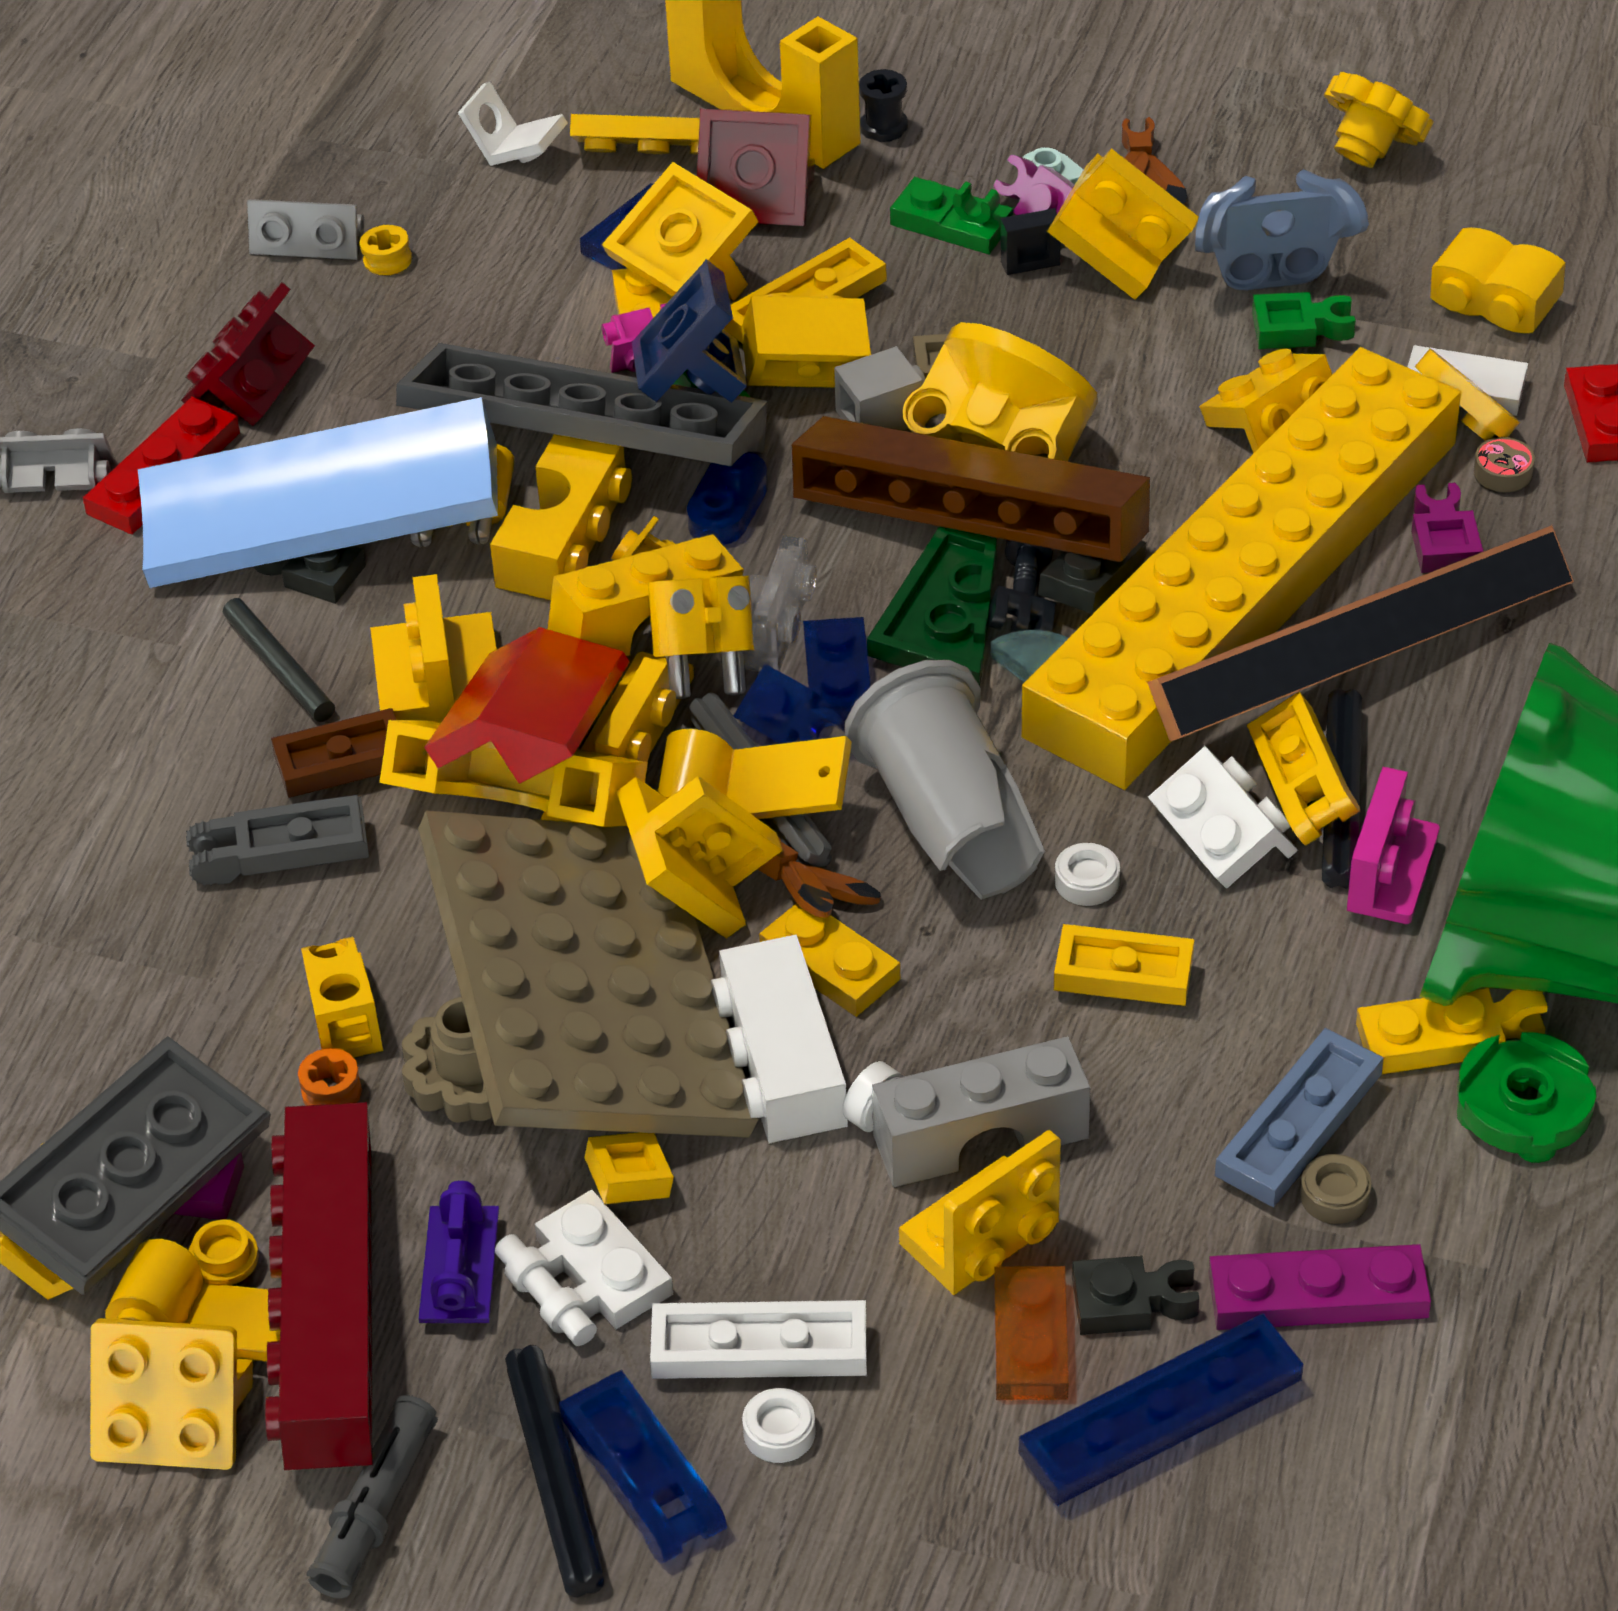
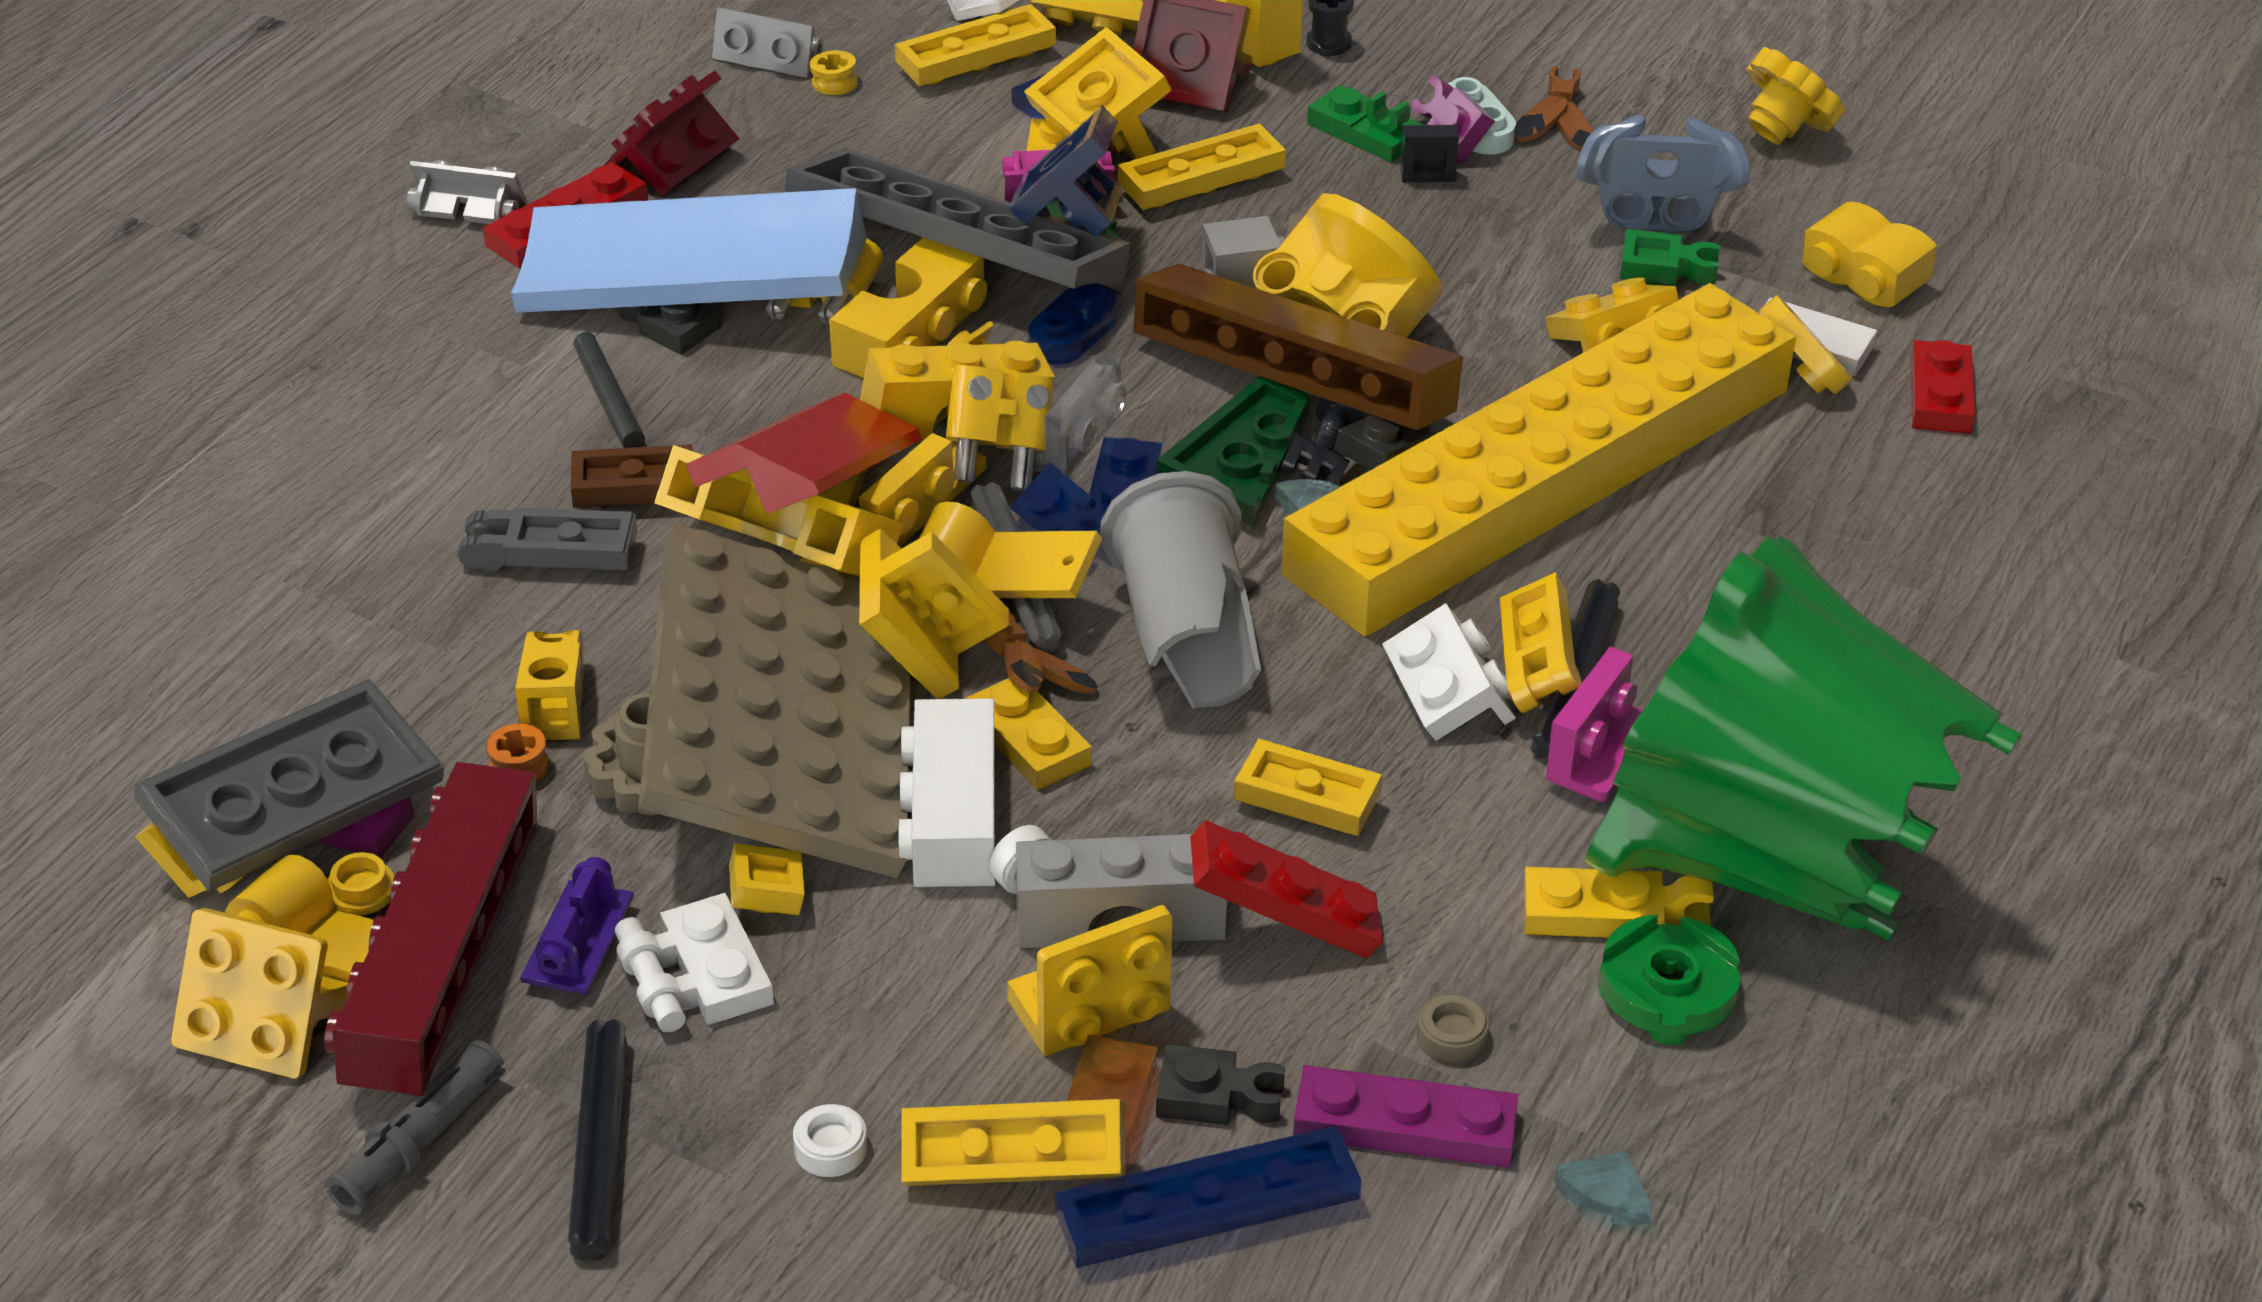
camera: 10 degrees right, 5 degrees down
(429, 658) = (744, 398): yellow bracket -> none
(525, 193) = (975, 45): none -> yellow plate
(641, 1465) = (682, 1149): clear blue plate -> none
(758, 1339) = (835, 1056): white plate -> none
(802, 339) = (1179, 194): yellow brick -> none
(963, 1394) = (1013, 1142): none -> yellow plate
(1087, 874) = (1302, 703): white tile -> none
(1121, 222) = (1516, 146): yellow bracket -> none
(1144, 1081) = (1285, 889): none -> red plate
(1298, 1117) = (1434, 954): sand blue plate -> none
(1359, 633) = (1630, 530): black tile -> none
(1442, 531) = (1748, 463): magenta plate -> none
(1504, 464) = (1827, 414): dark tan tile -> none
(1528, 1321) = (1606, 1186): none -> clear light blue tile

